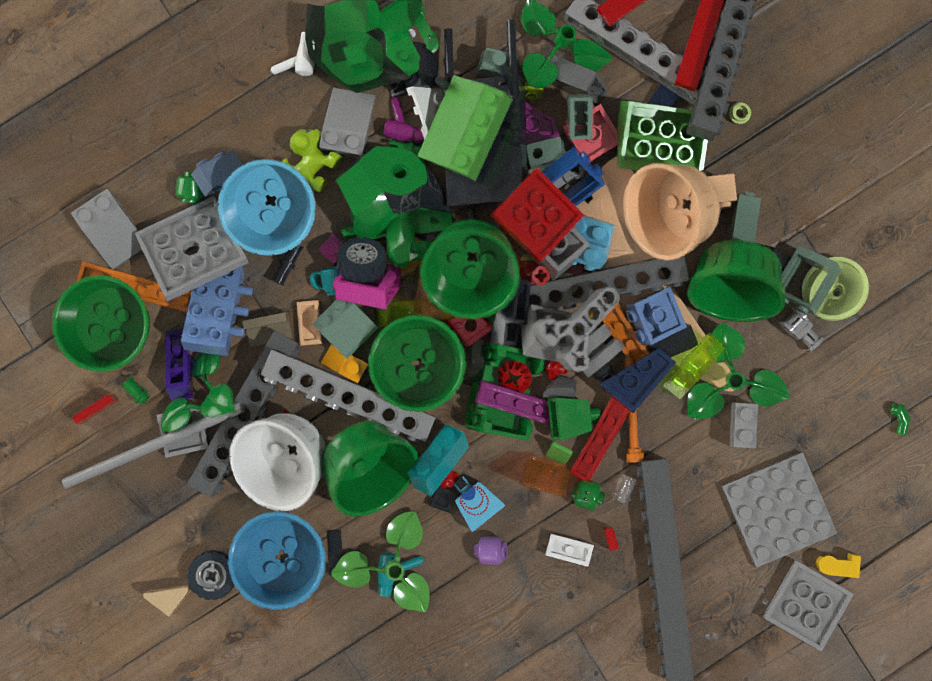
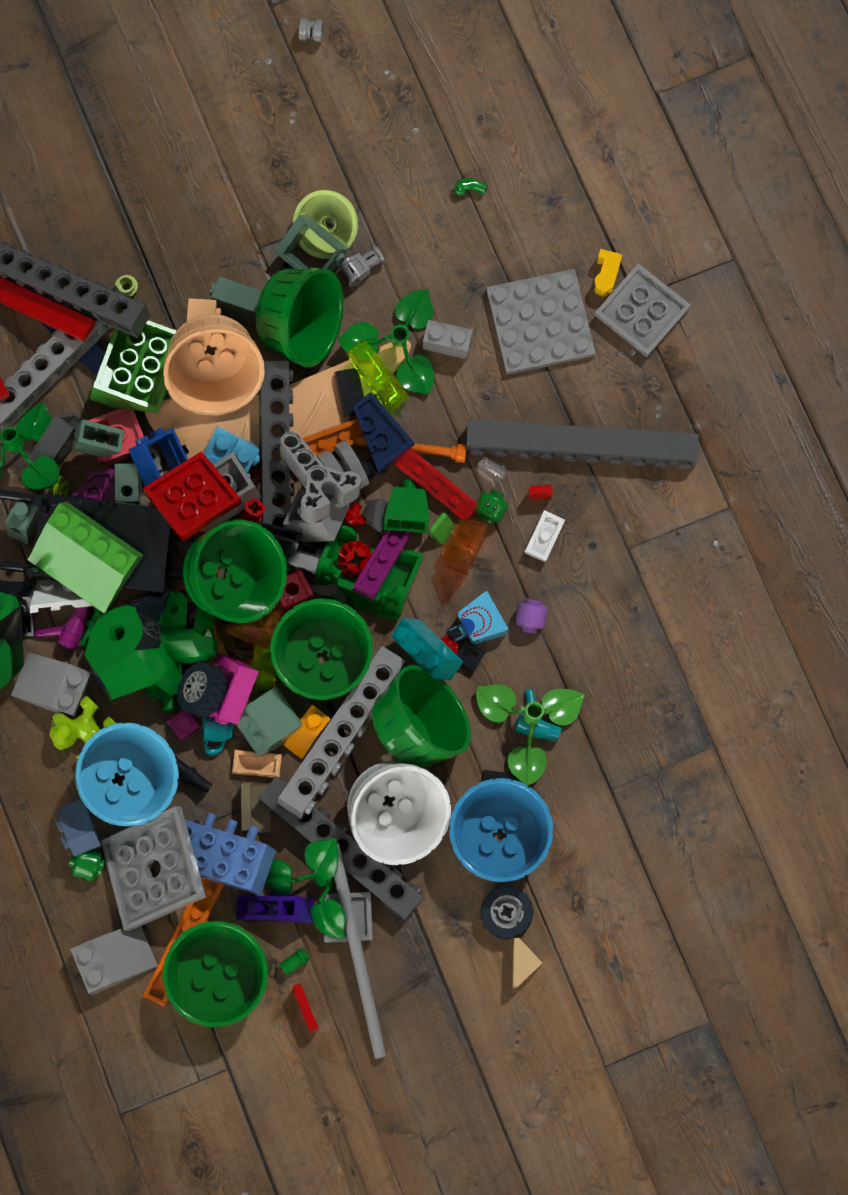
camera: 80 degrees left, 10 degrees down
(655, 316) = (319, 404): medium blue plate -> none

